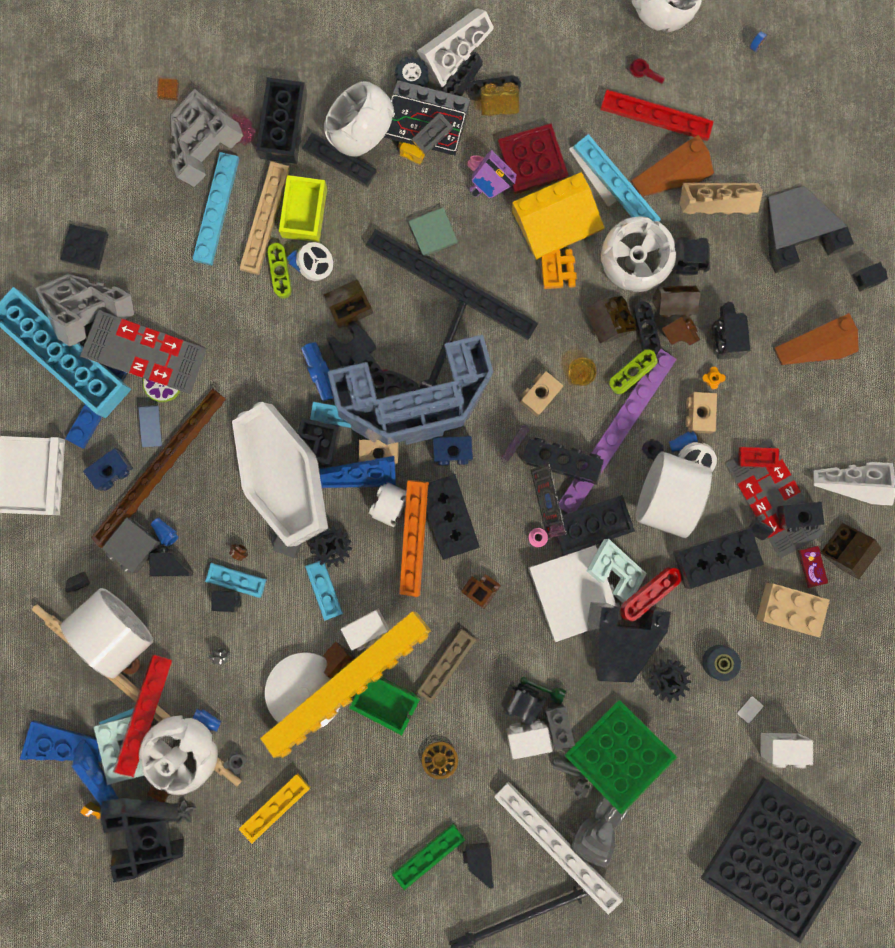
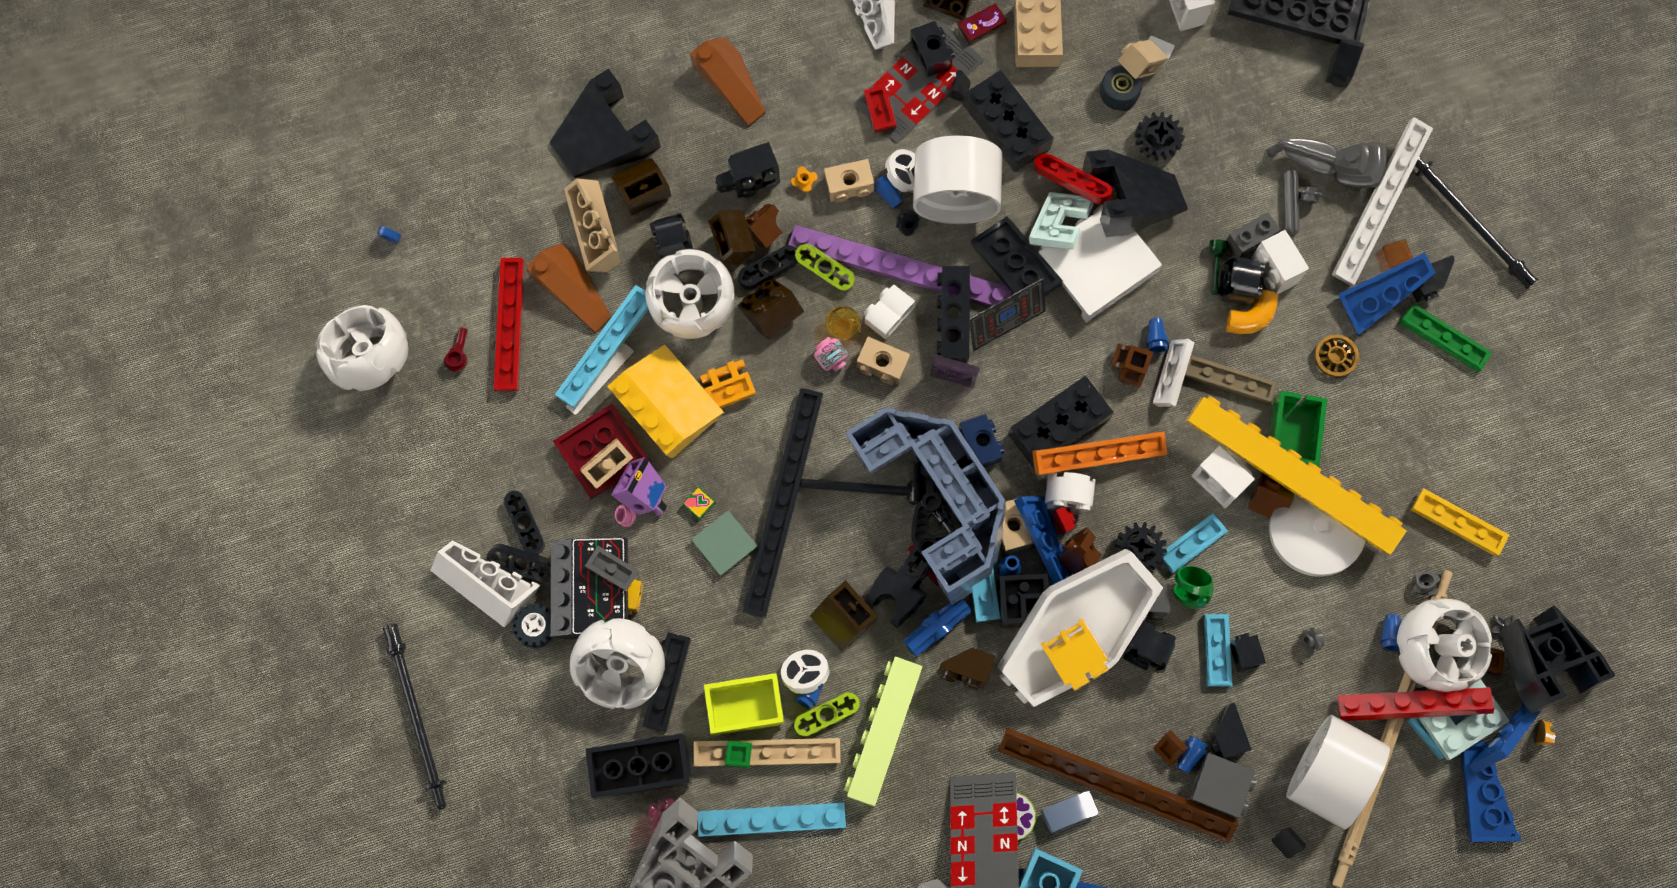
camera: 100 degrees left, 10 degrees down
(97, 471) = (1126, 841): dark blue brick -> none
(172, 517) = (1170, 748): none -> reddish brown plate
(238, 552) = (1184, 656): reddish brown plate -> none
(248, 526) = (1150, 648): none -> black brick
(252, 307) = (884, 731): none -> yellowish green brick
(256, 463) = (1076, 655): none -> yellow plate
(268, 195) = (738, 754): none -> green tile
(277, 382) = (968, 667): none -> dark brown slope
(286, 576) = (1193, 587): none -> green helmet
(340, 497) = (1079, 551): none -> reddish brown brick
(348, 446) = (1005, 570): none -> blue cone
(367, 492) = (1064, 520): none -> red plate
(463, 621) = (1173, 373): none -> white plate
(470, 221) = (699, 503): none -> tile
(478, 815) = (1380, 294): none -> blue wing
(489, 706) = (1255, 319): none -> light orange cylinder
(496, 618) = (1157, 338): none -> blue cone
(500, 99) = (541, 508): clear yellow brick -> none
(510, 843) = (1397, 253): none -> clear orange tile
(518, 153) = (606, 463): none -> tan brick
(532, 537) = (1049, 326): bright pink plate -> none
(558, 355) = (831, 354): none -> head
(581, 411) = (889, 311): none -> white brick
(621, 757) = (1261, 161): green plate -> none
(689, 860) = (1344, 62): none -> black slope
(741, 688) = (1142, 58): none -> tan brick
(743, 245) = (642, 186): none -> dark brown slope
(870, 276) = (637, 44): black brick -> none

